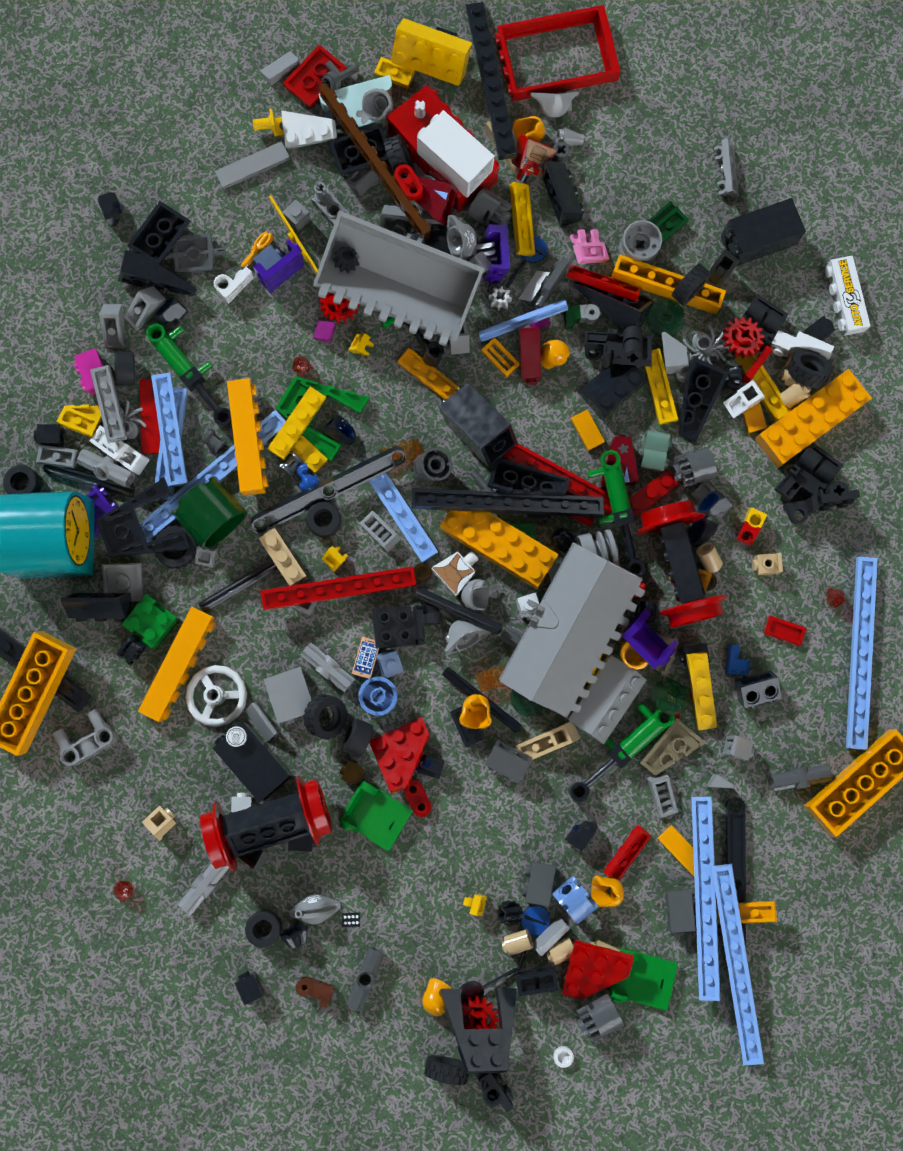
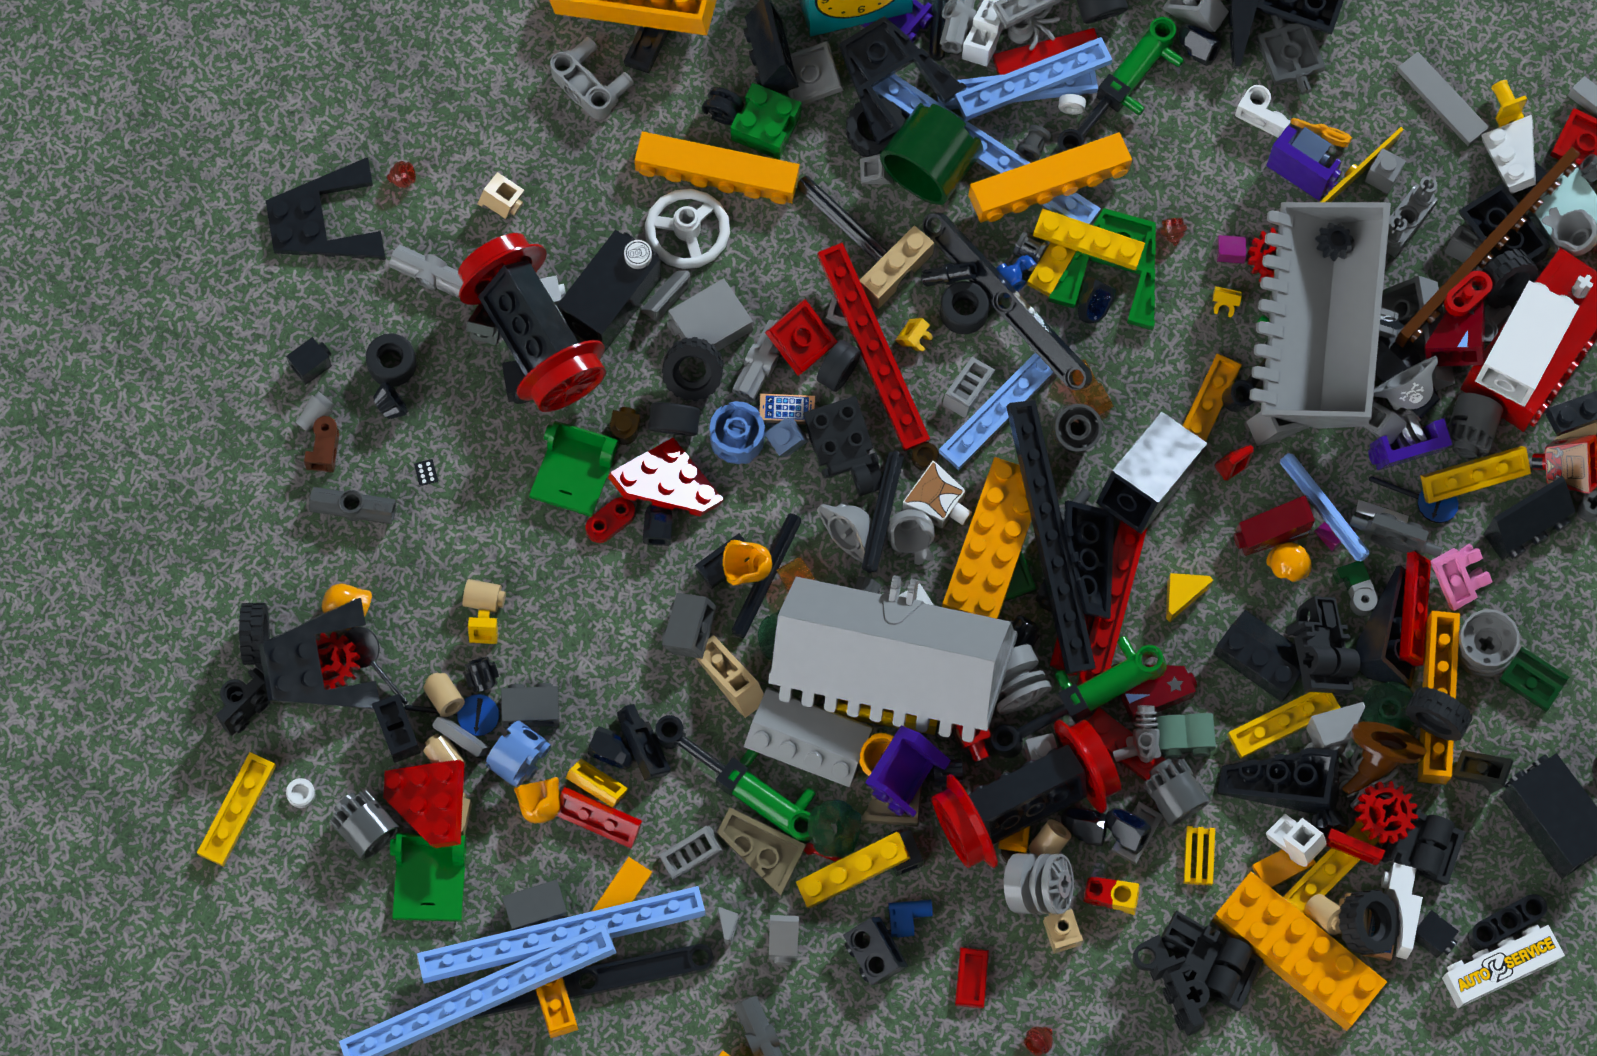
camera: 80 degrees right, 10 degrees down
(139, 973) = (299, 222): none -> black wing
(193, 409) = (1072, 104): none -> white tile
(287, 990) = (314, 409): none -> light grey cone
(298, 523) = (949, 274): none -> black pin
(315, 909) = (430, 422): light grey hat -> none
(319, 635) = (801, 337): none -> red plate
(347, 615) = (838, 365): none -> black tyre
(453, 899) = (483, 595): none -> tan brick
(477, 369) = (1234, 462): none -> red slope
(500, 293) = (1346, 463): white gear -> none
(516, 364) = (1251, 511): light orange tile -> none
(559, 427) = (1183, 591): none -> yellow slope
(566, 1105) = (236, 809): none -> yellow plate
(582, 811) = (643, 744): none -> black hinge
(587, 430) = (1191, 635): light orange tile -> none
(605, 851) = (596, 783): none -> yellow tile
(648, 547) = (1039, 746): none -> light grey brick
(655, 477) = (1144, 740): none -> light grey piece
(699, 326) = (1382, 752): none -> reddish brown piece
(740, 571) = (1038, 883): none -> light grey wheel
(750, 469) = (1200, 831): none -> yellow tile
(823, 277) = (1519, 916): none -> black beam

